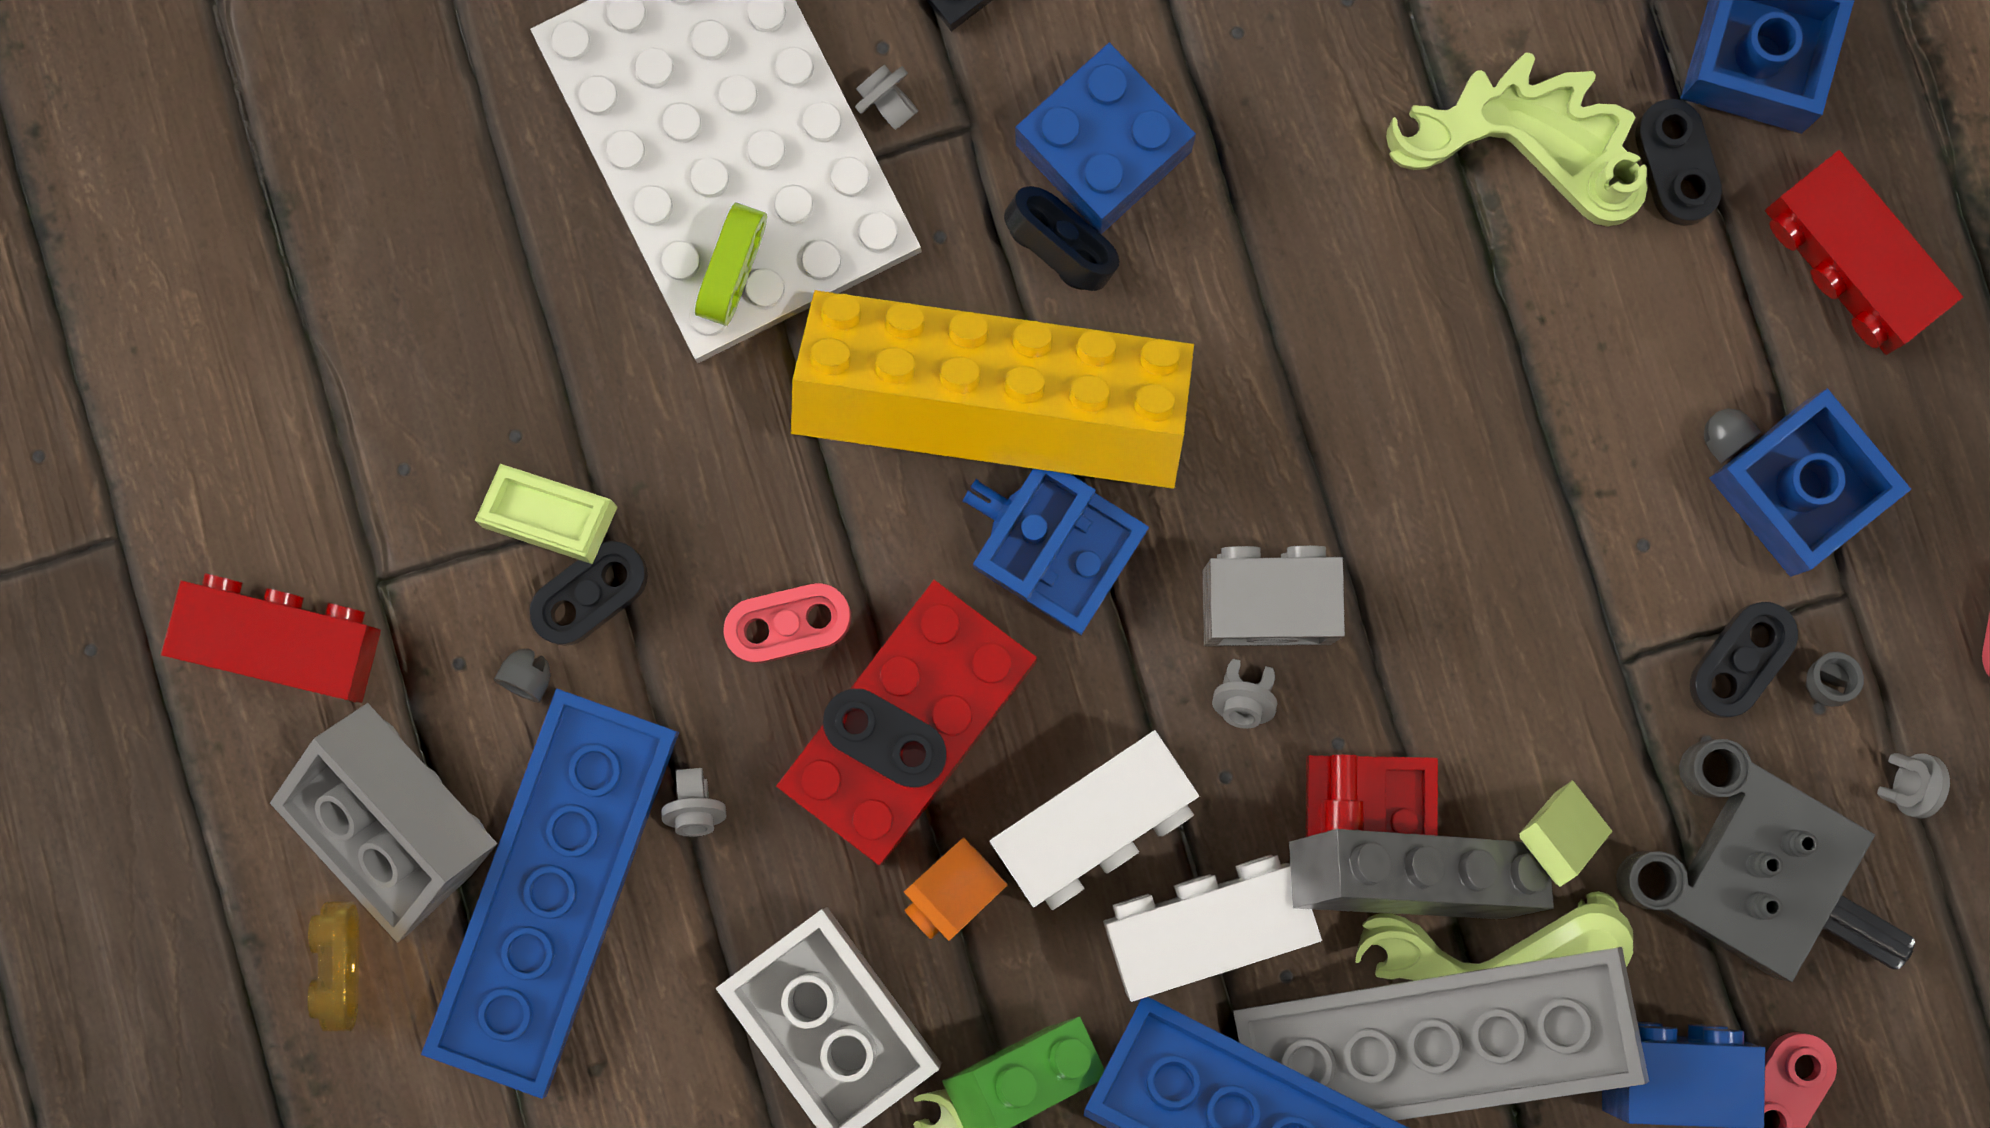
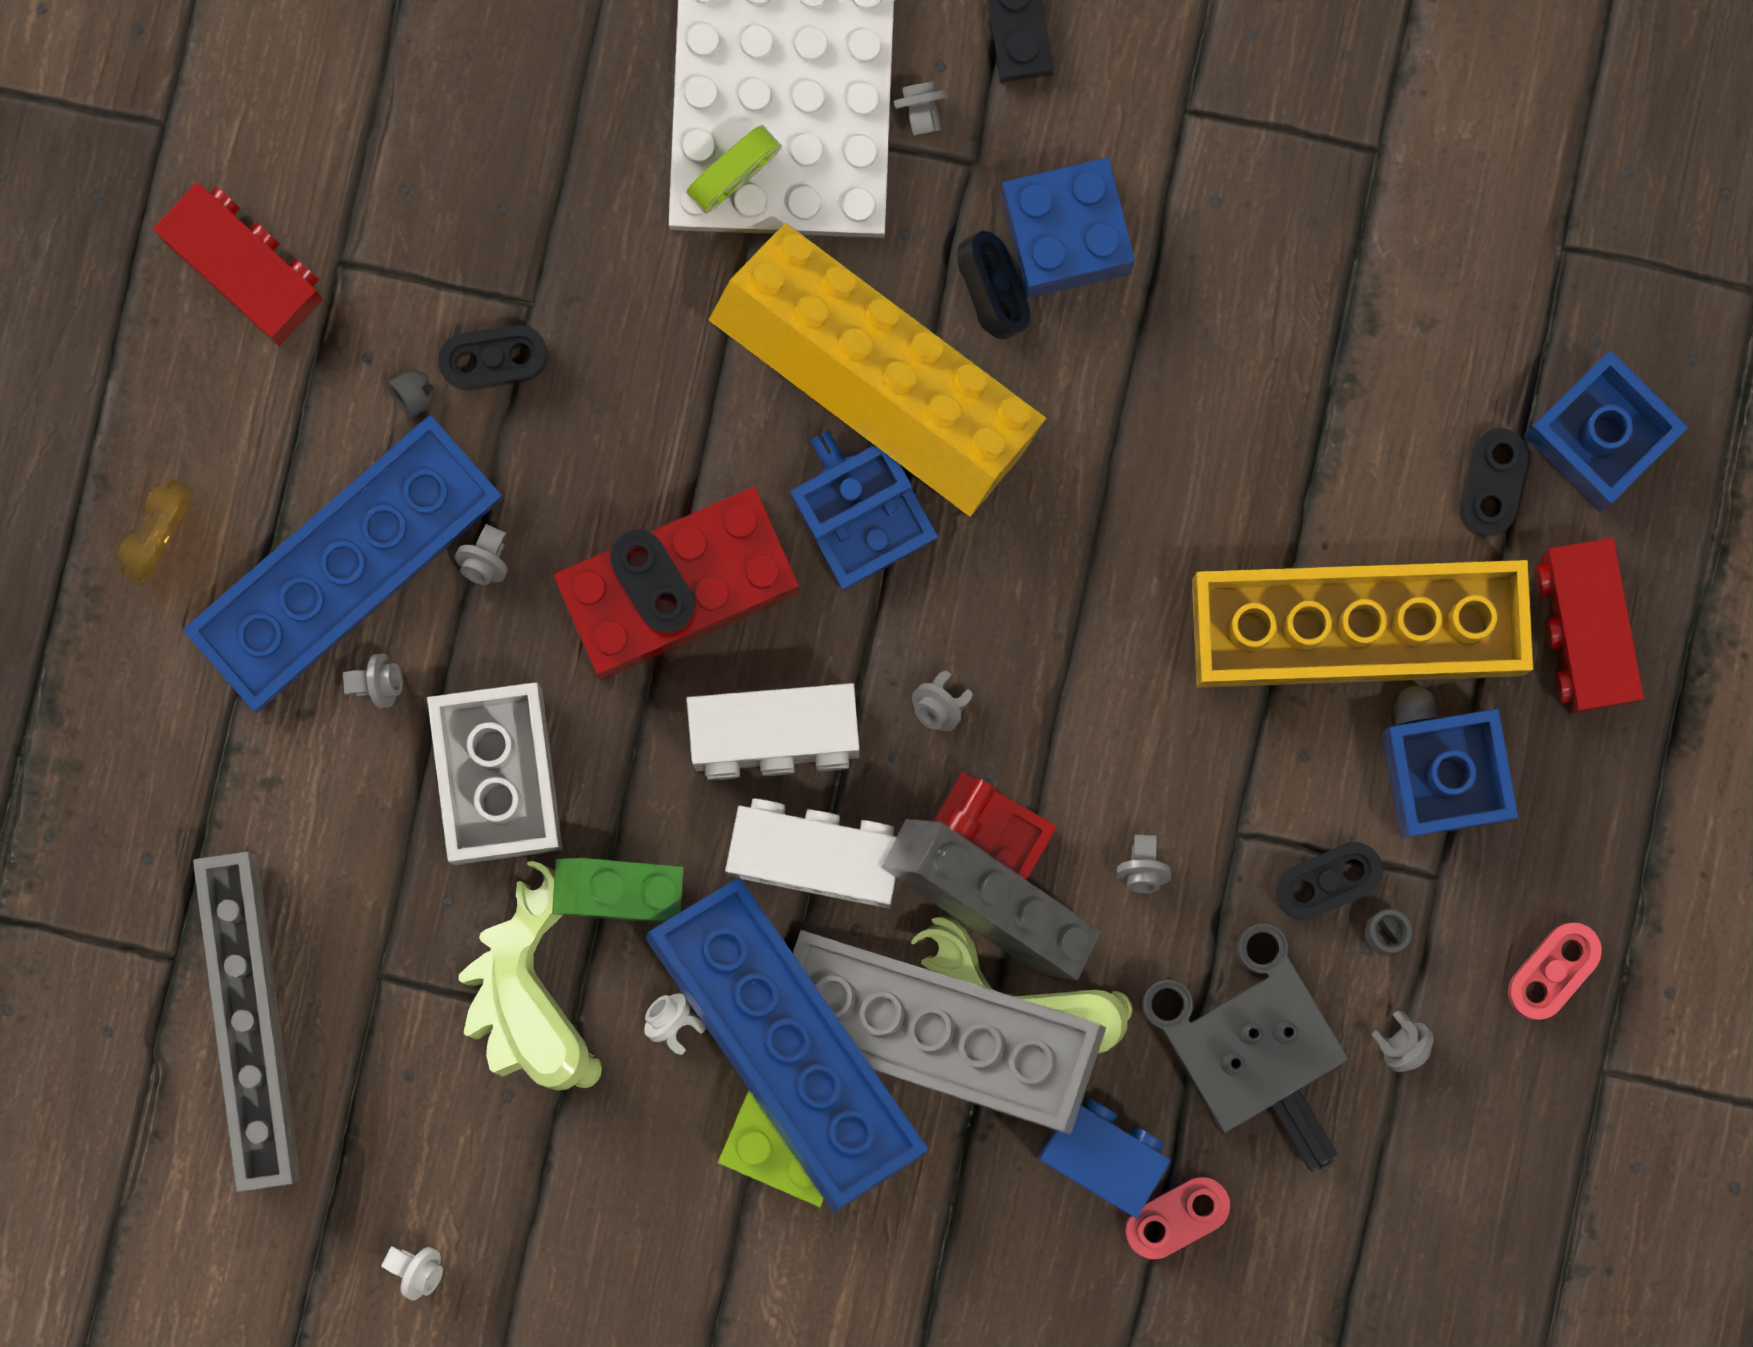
camera: 20 degrees right, 0 degrees up
(382, 821) = (246, 442): light grey slope -> none
(546, 513) = (494, 280): yellowish green tile -> none
(656, 994) = (380, 681): none -> light grey plate
(788, 623) = (629, 461): coral plate -> none
(953, 891) = (641, 725): orange slope -> none
(1273, 599) = (997, 638): light grey brick -> none
(1549, 756) = (1143, 872): none -> light grey plate
(1565, 833) = (1119, 931): yellowish green tile -> none
(1566, 142) = (1416, 421): yellowish green animal -> none
(1633, 377) = (1362, 623): none -> yellow brick

